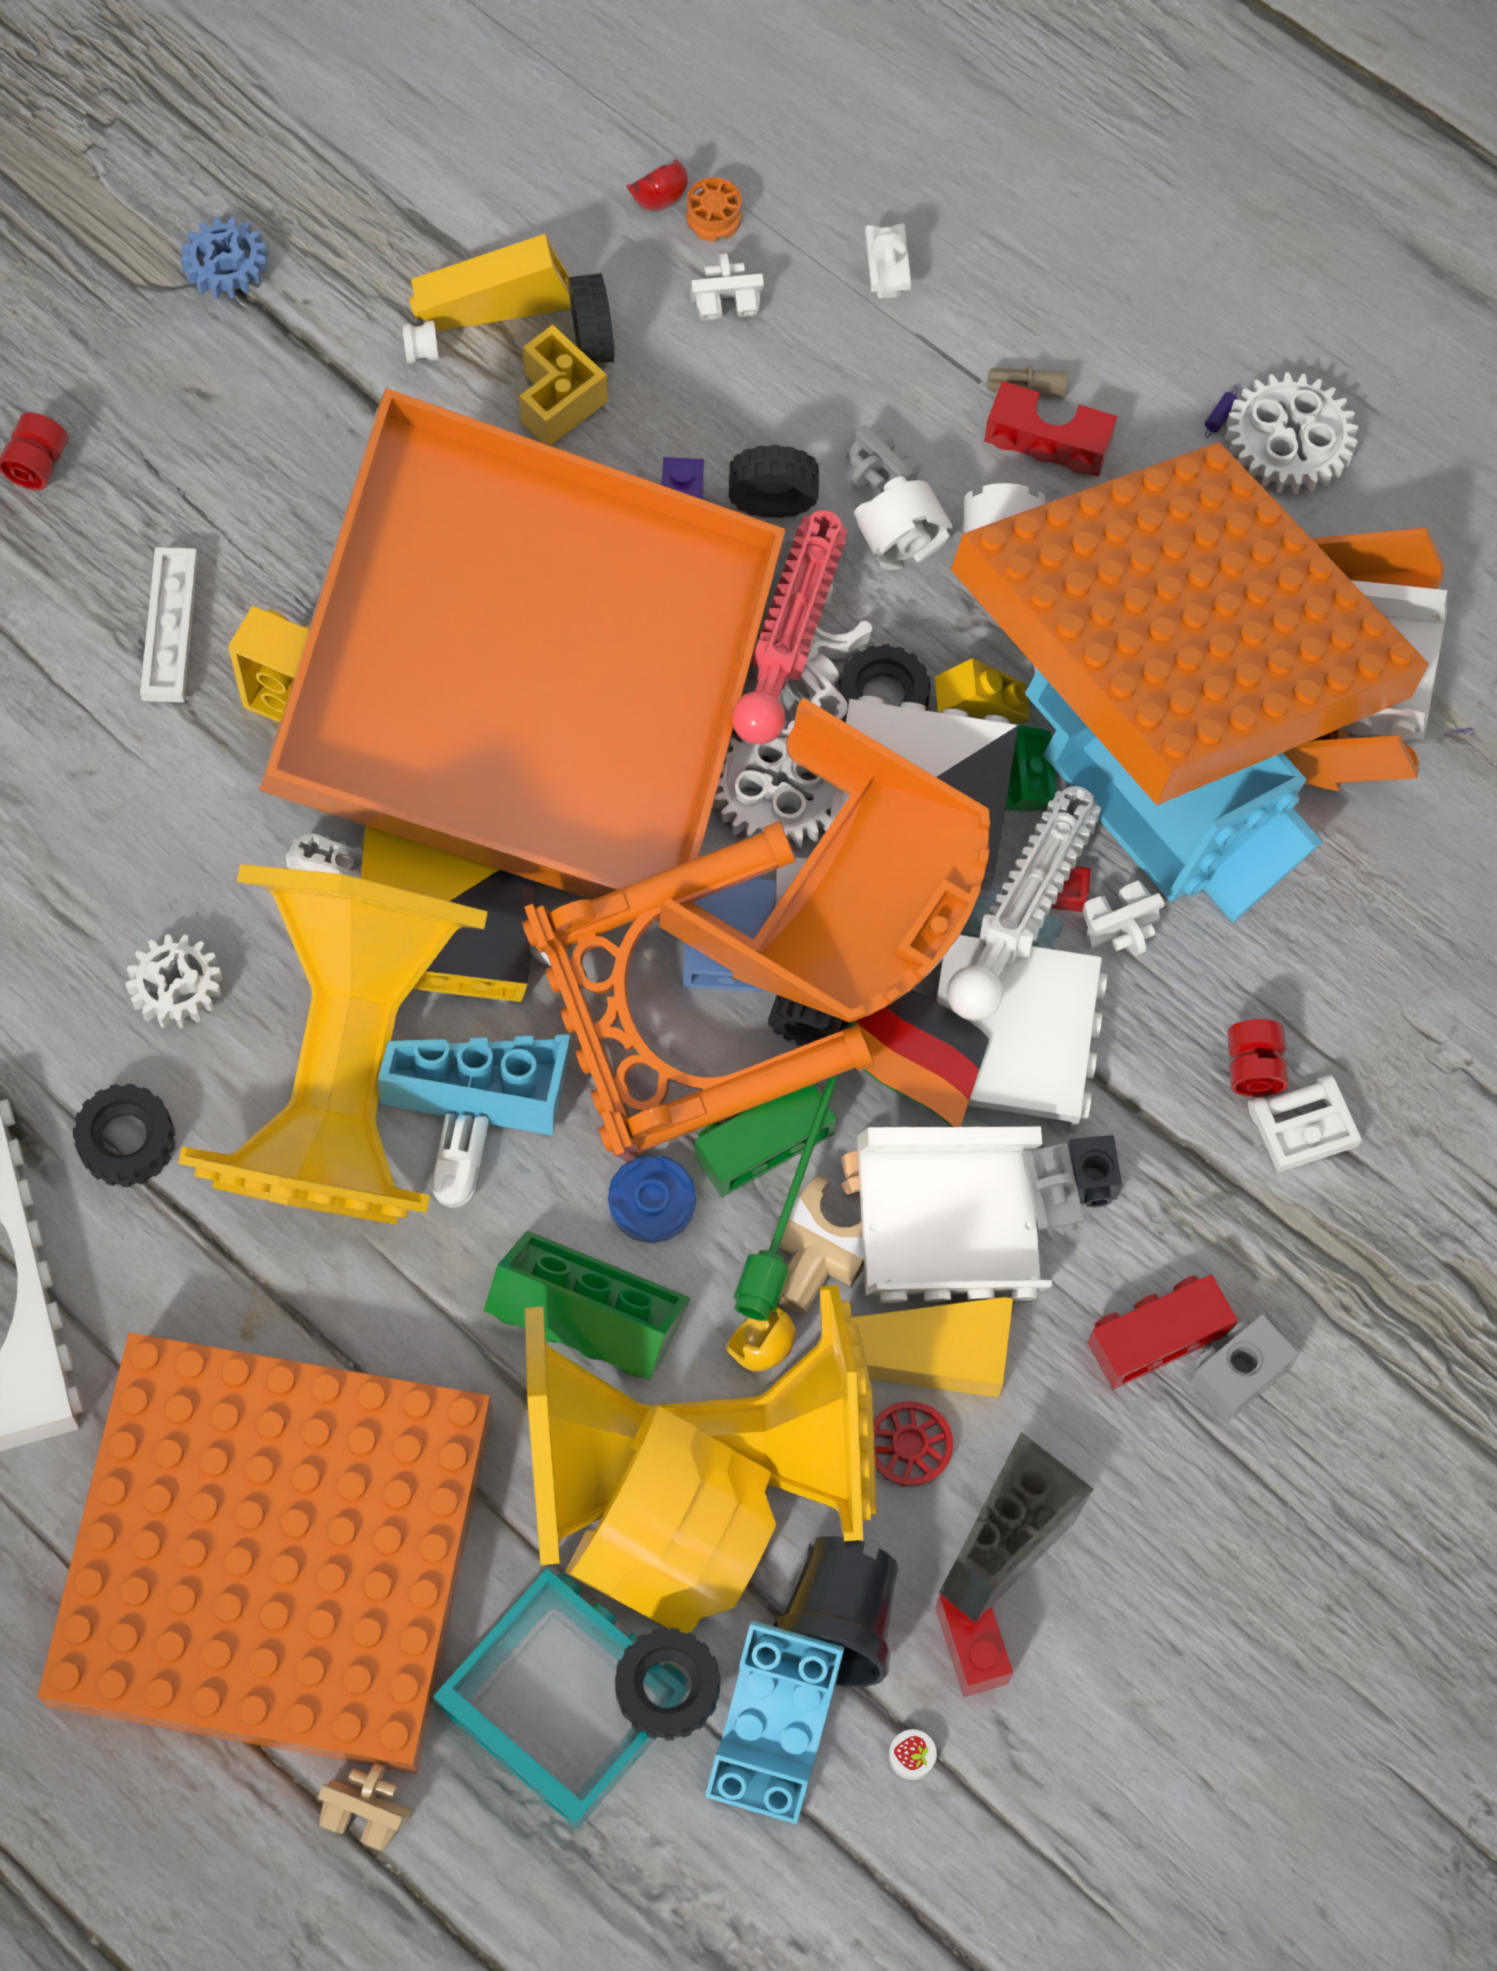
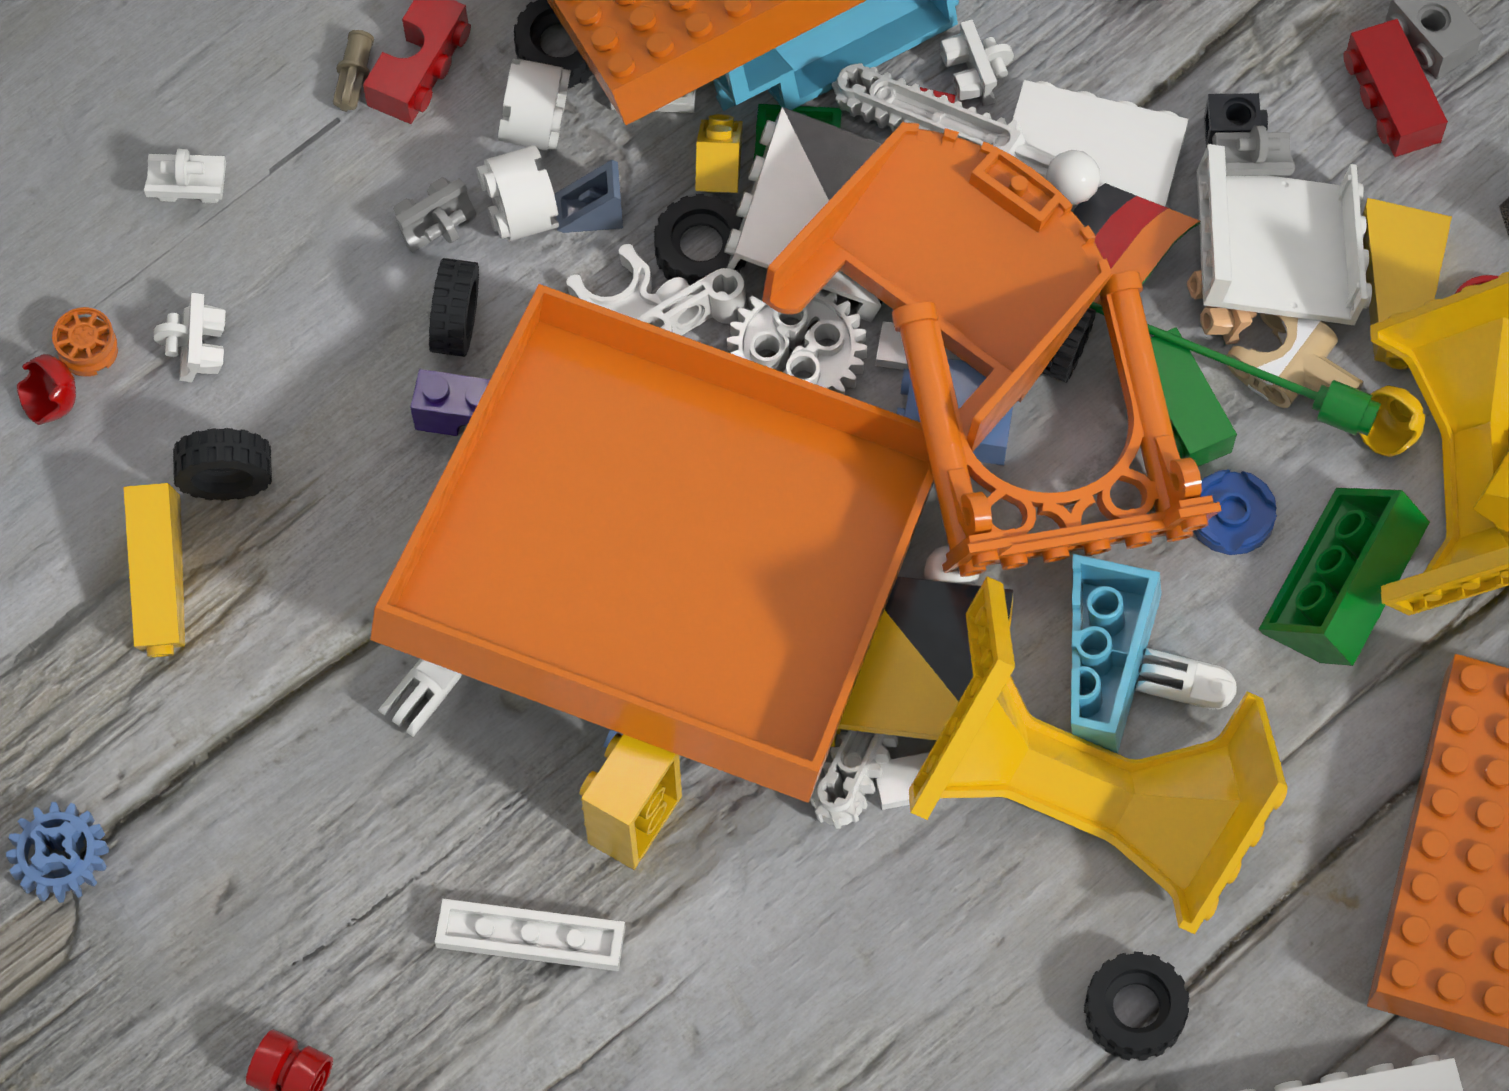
camera: 80 degrees left, 0 degrees up
(184, 995) = (981, 954): white gear -> none
(420, 342) = (208, 650): white wheel -> none
(564, 388) = (291, 499): yellow brick -> none
(790, 625) = (750, 332): coral gear -> none
(914, 598) = (591, 201): none -> sand blue slope

